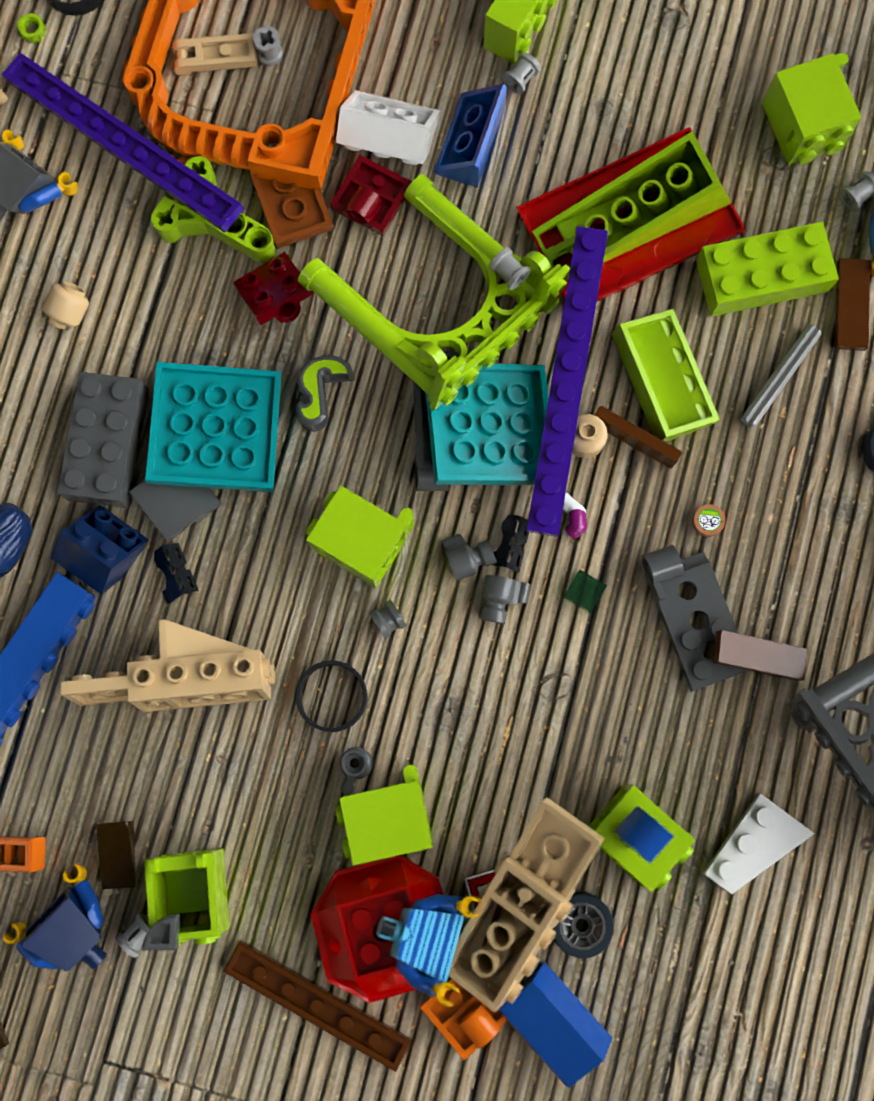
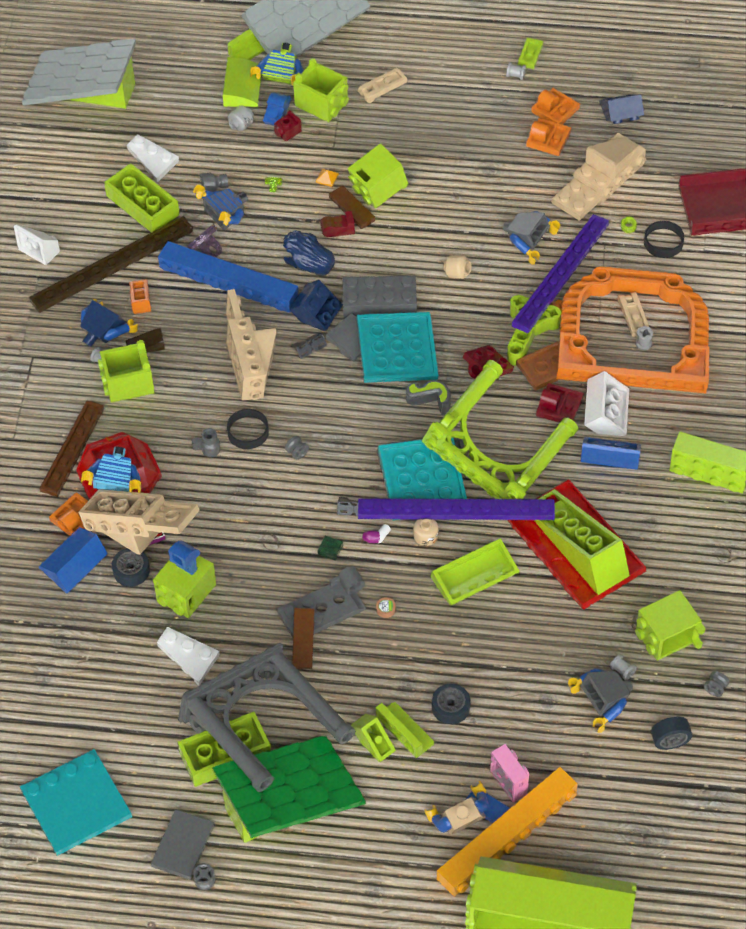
camera: 80 degrees right, 25 degrees down
(163, 935) = (105, 355): dark grey tile -> none
(359, 535) = (341, 422): lime container -> none
(385, 821) = (180, 458): lime container -> none
(465, 559) = (340, 481): dark grey piece -> none
(498, 593) = (322, 501): dark grey piece -> none
(509, 268) = (518, 467): light grey bush -> none
(521, 73) = (659, 470): light grey bush -> none
(639, 438) = (431, 559): reddish brown tile -> none
(766, 269) = (555, 617): lime brick -> none
(781, 376) = (488, 637): light grey axle -> none
(852, 304) = (544, 673): reddish brown tile -> none

